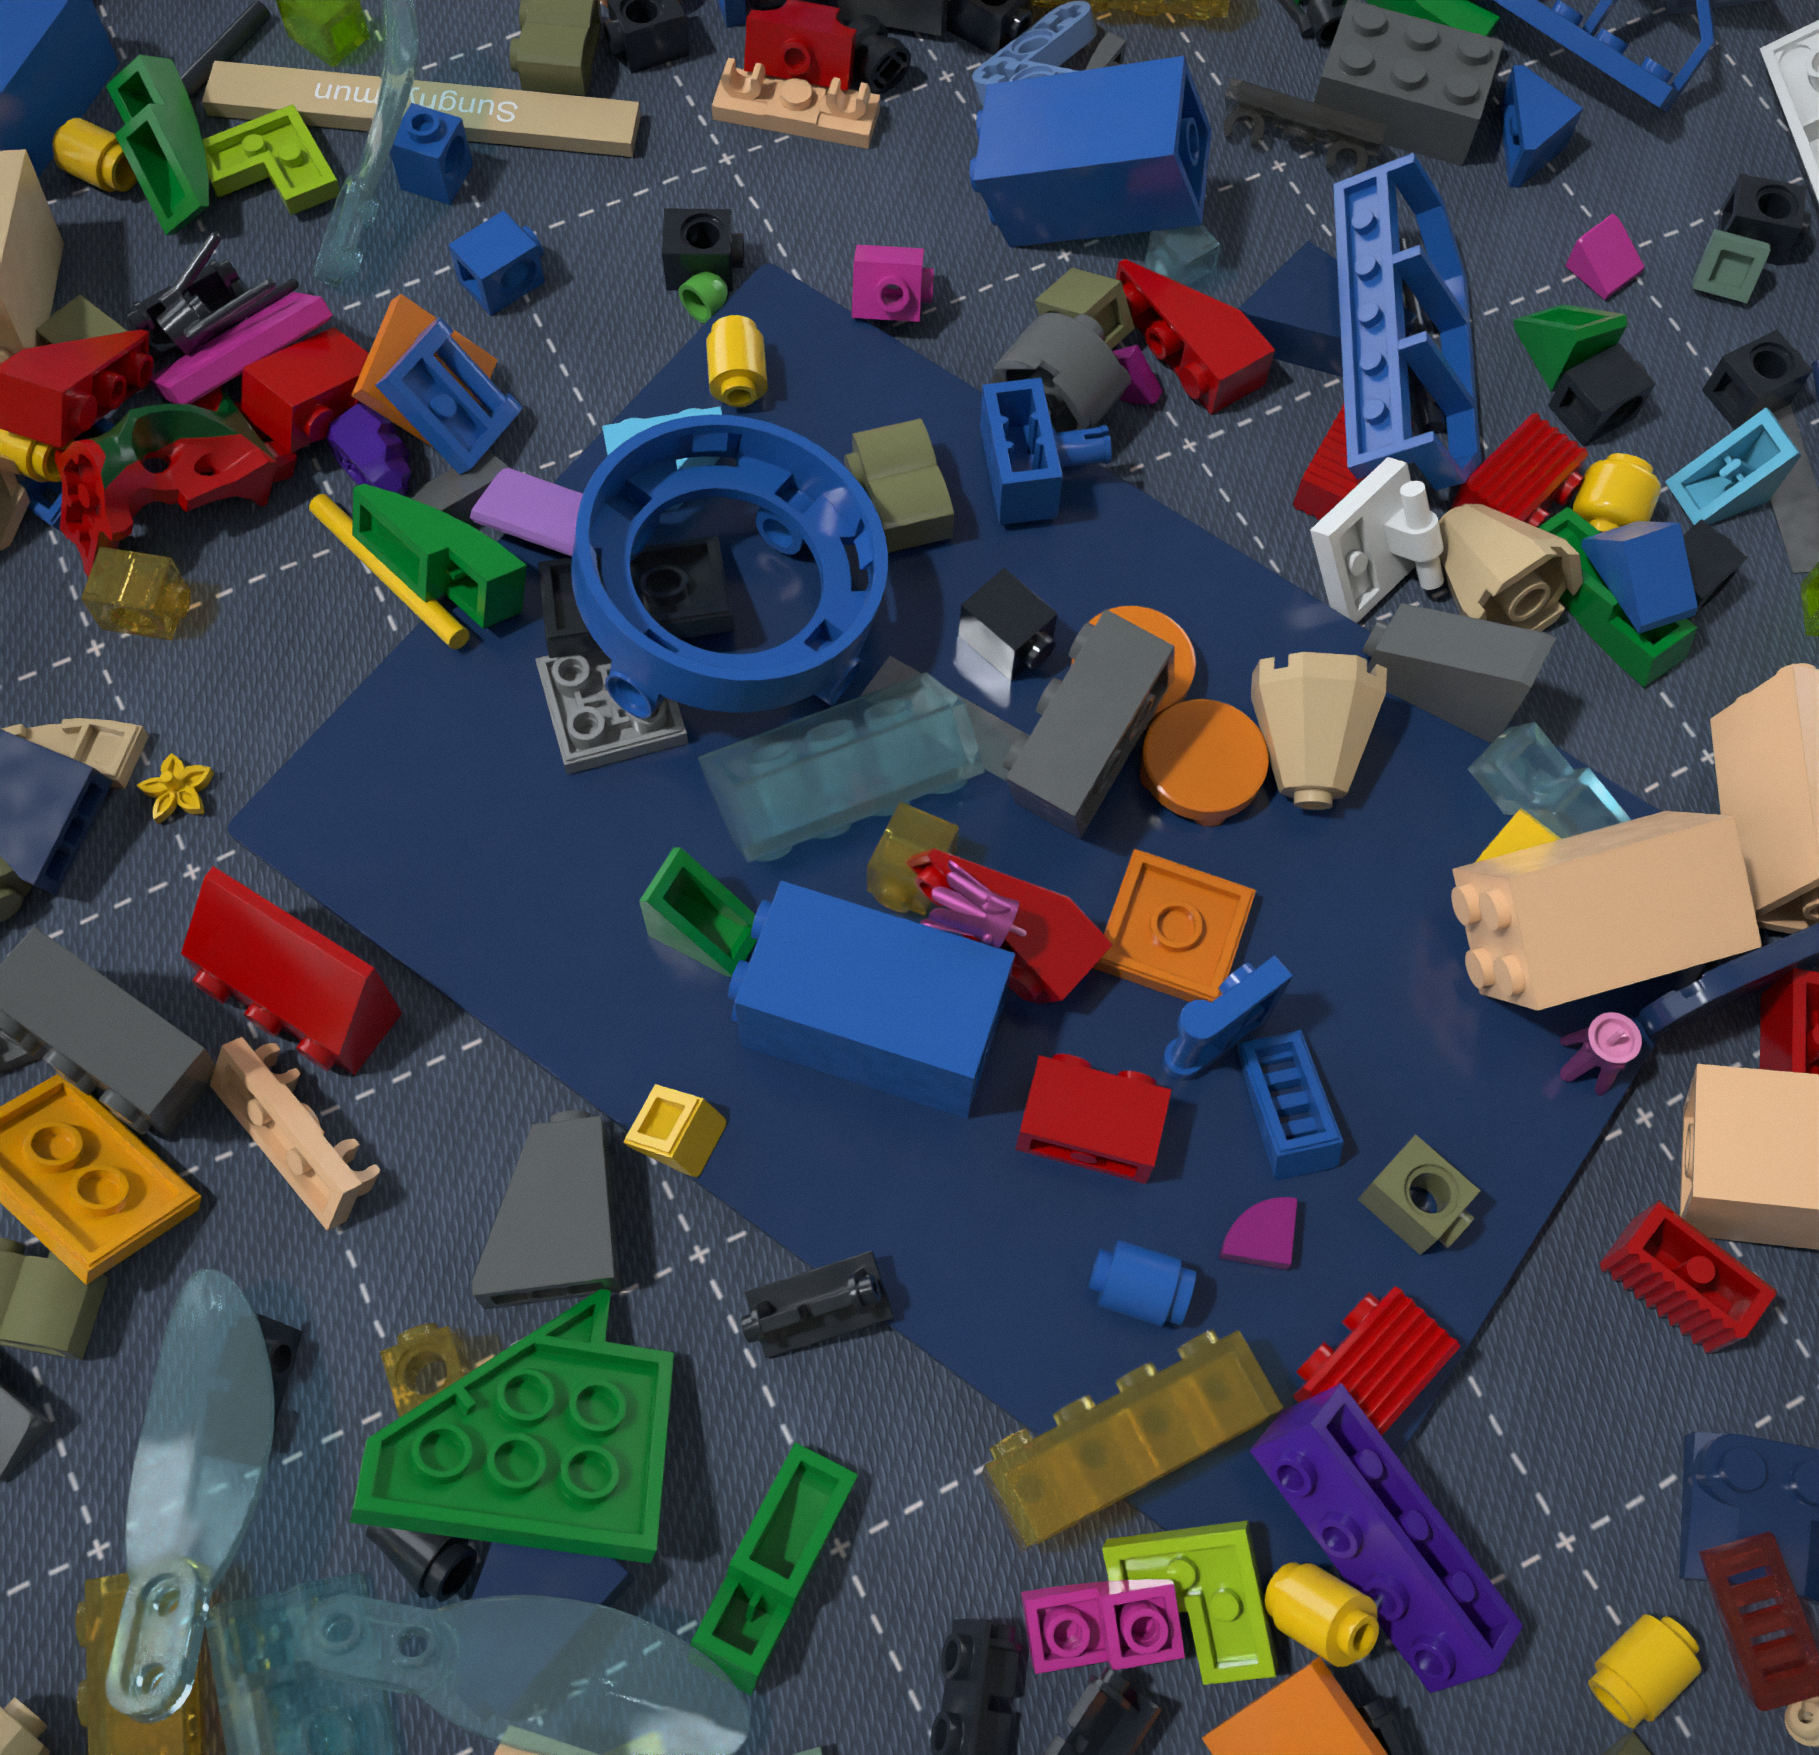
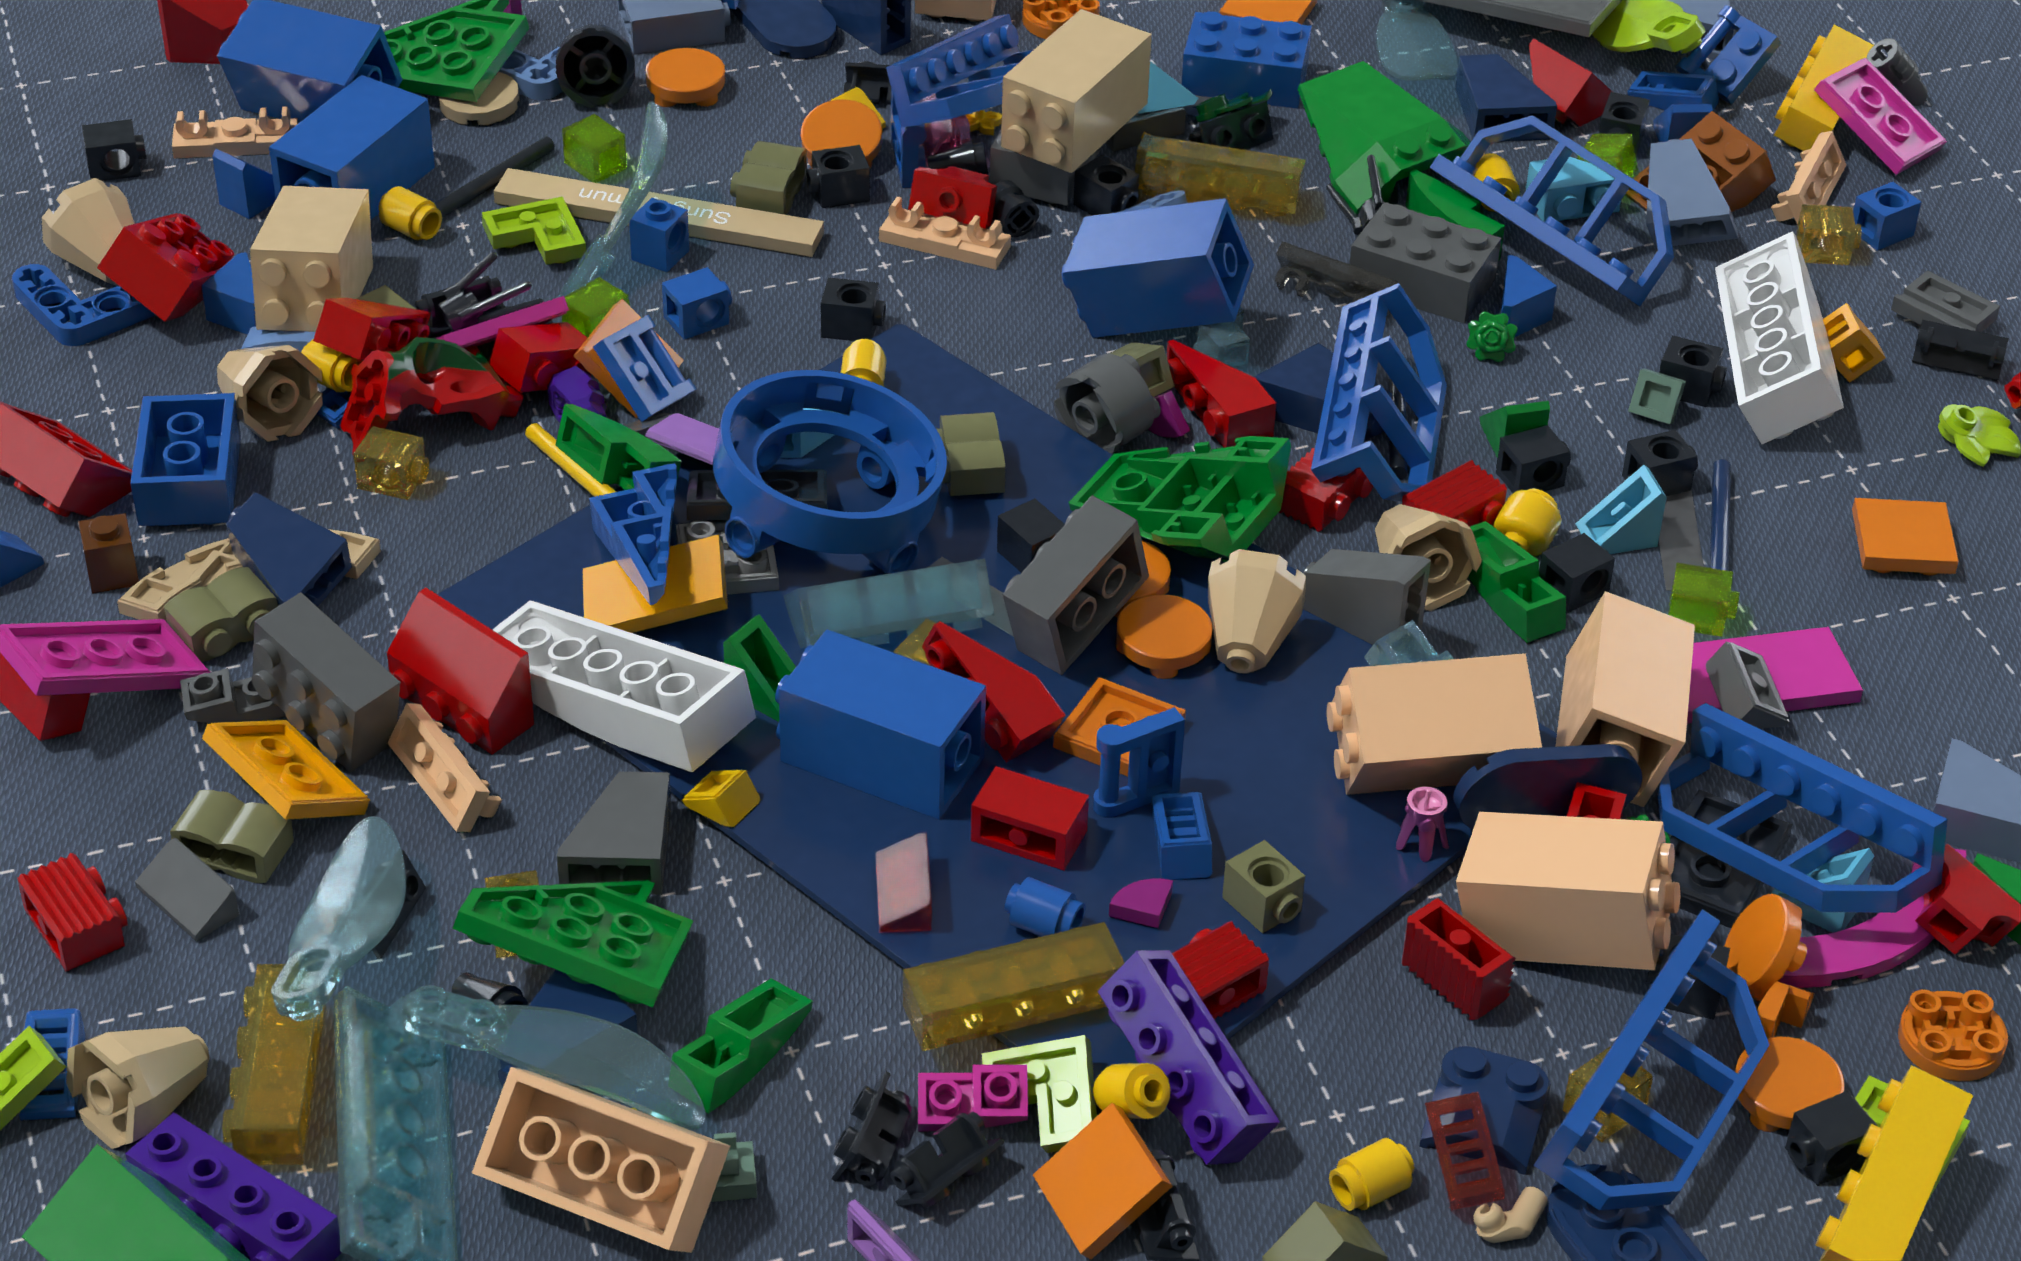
camera: 10 degrees right, 25 degrees down
(162, 140) = (461, 205): green slope -> none
(177, 787) = (396, 579): yellow plant -> none
(362, 293) = (591, 304): none -> clear neon green brick
(488, 690) = (638, 527): none -> blue wedge
(505, 965) = (630, 686): none -> white slope
(526, 785) = (692, 589): none -> light orange tile
(703, 295) = (844, 334): bright green hinge -> none
(817, 1305) = (804, 904): black hinge -> none
(890, 283) = (976, 344): dark pink brick -> none
(946, 1258) = (904, 886): none -> slope
(973, 909) = (973, 666): flat silver piece -> none
(1027, 453) = (1071, 441): blue brick -> none
(1196, 527) = (1197, 499): none -> green wedge
(1378, 540) = (1323, 515): white plate -> none
(1510, 192) = (1491, 336): none -> green plant
(1605, 258) = (1560, 383): dark pink slope -> none
(1645, 571) = (1525, 549): blue slope -> none

